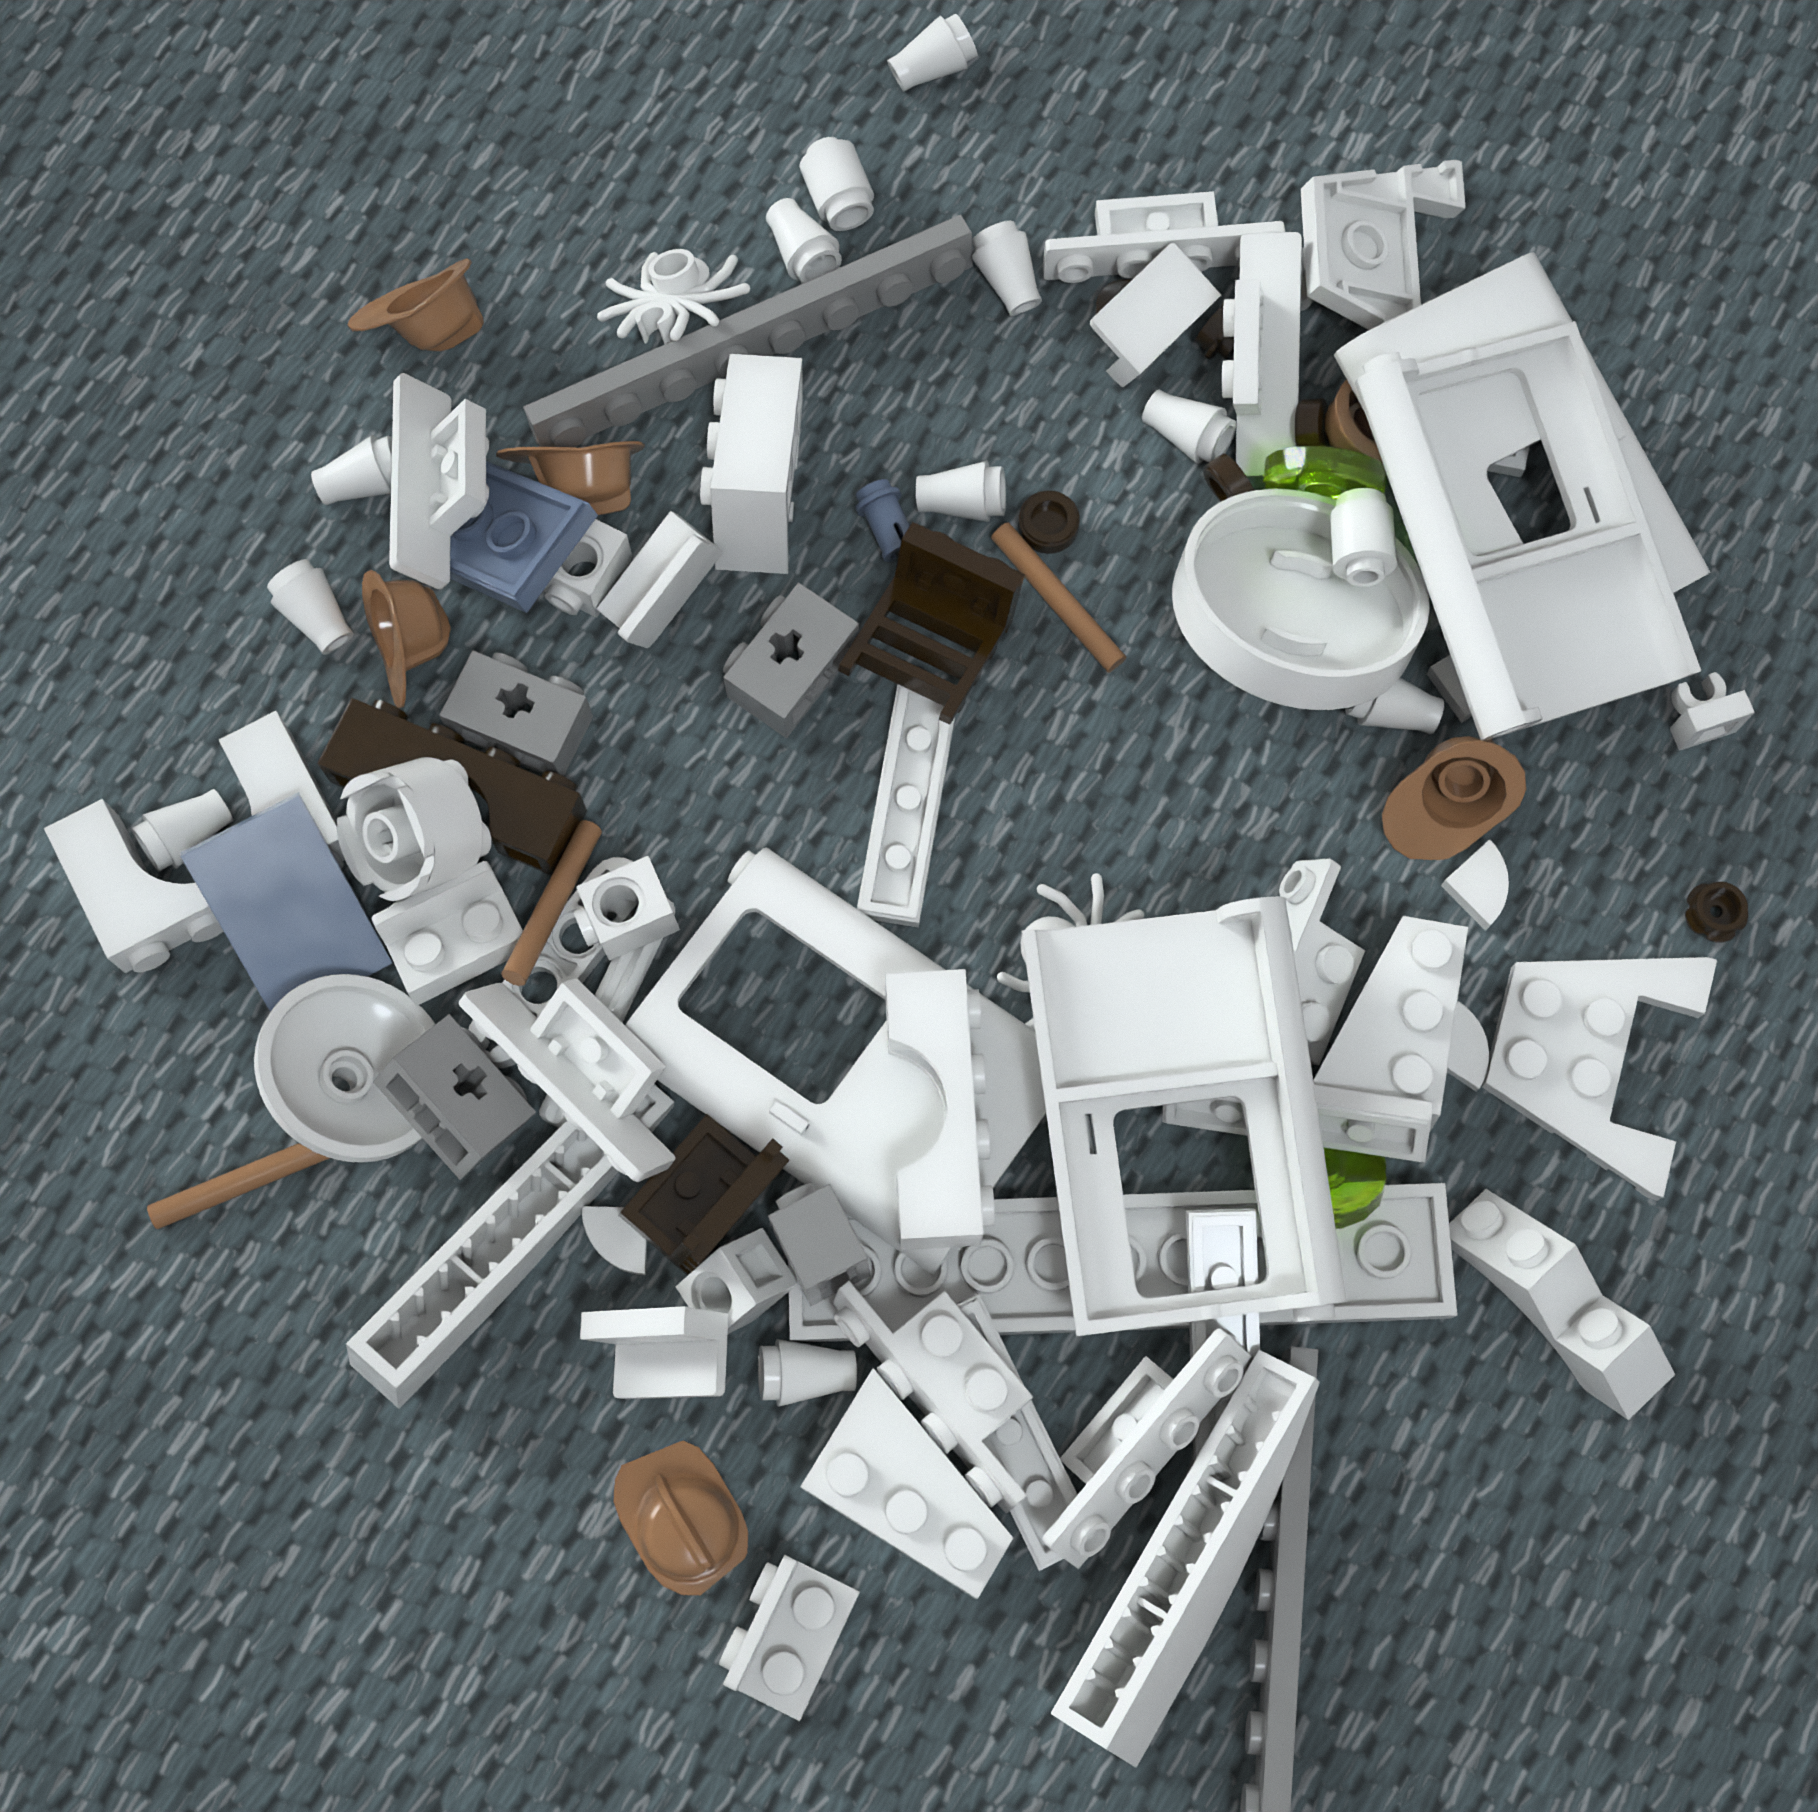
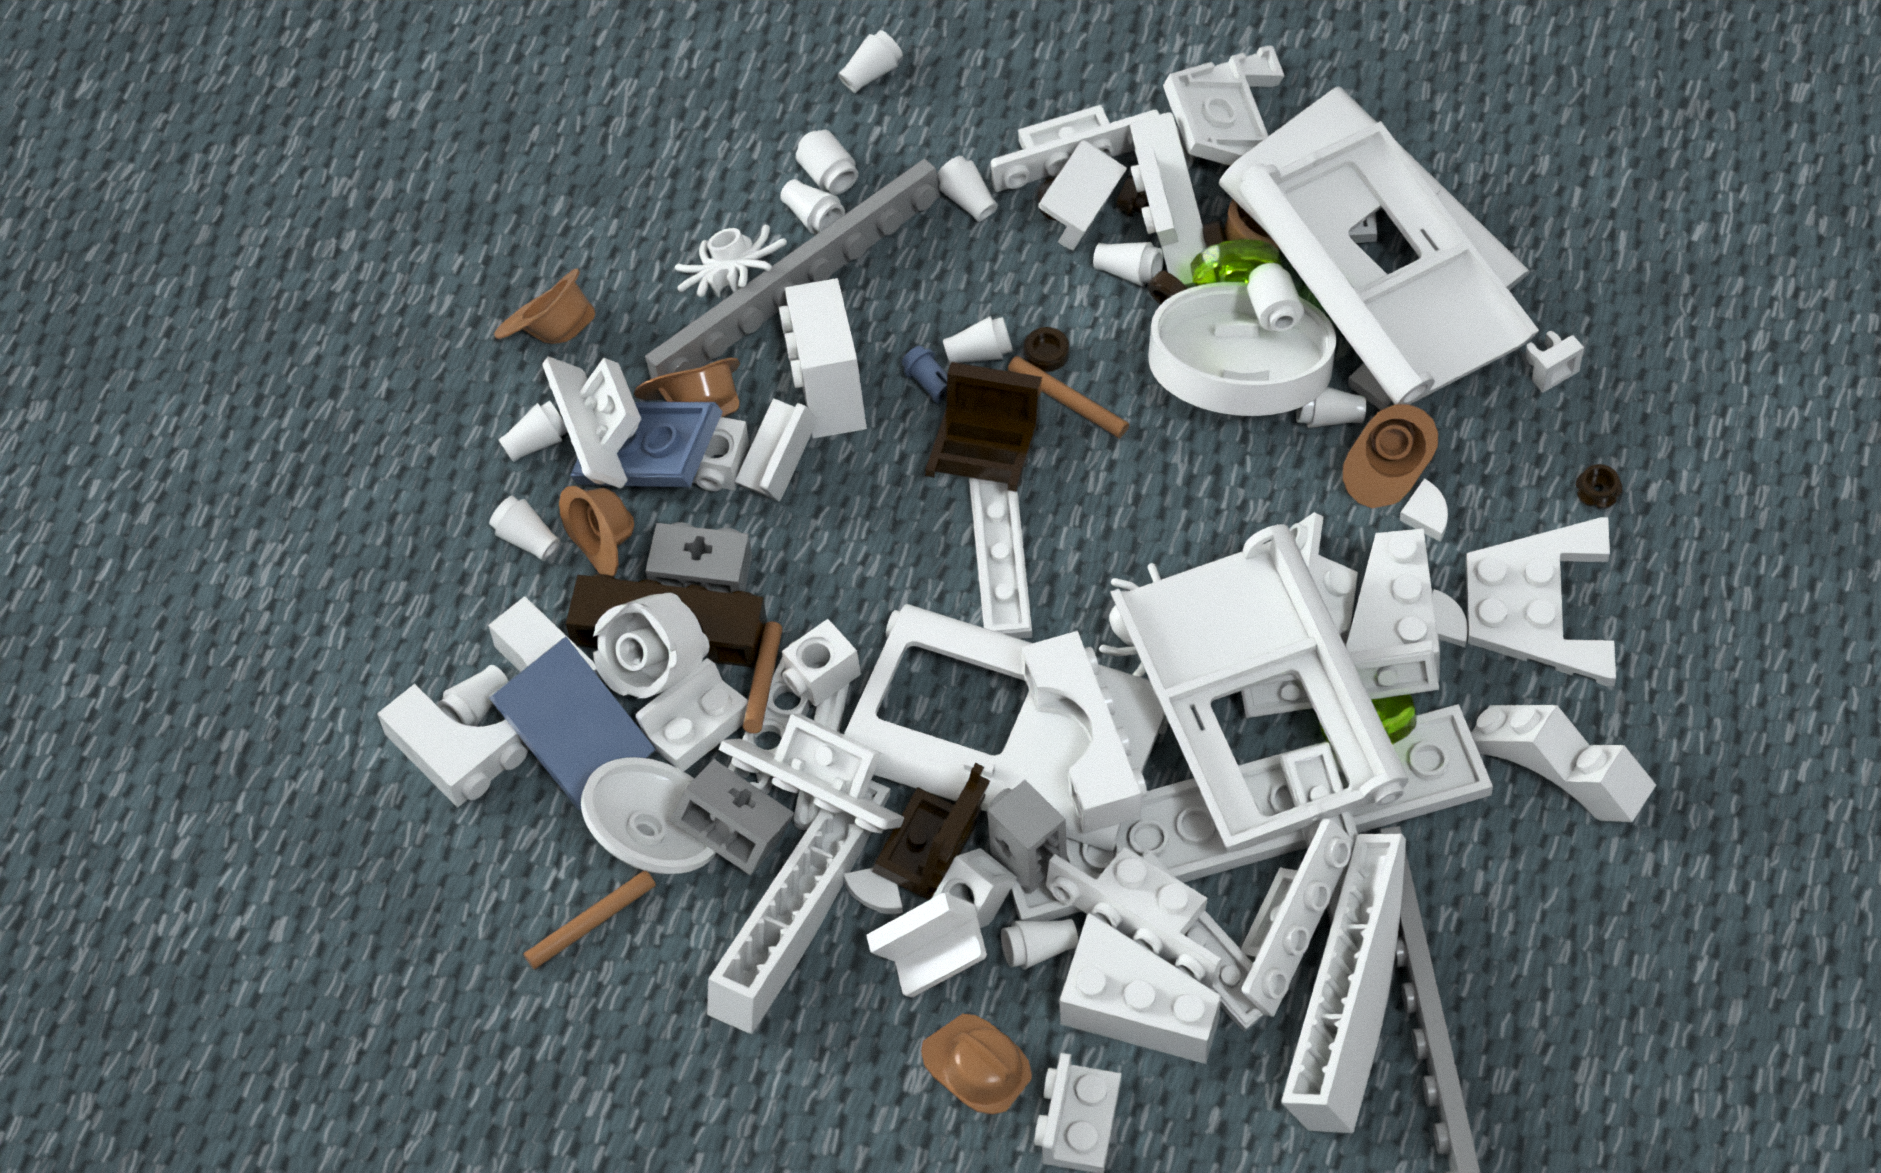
camera: 10 degrees left, 15 degrees down
(786, 691) = (887, 479): light grey brick -> none

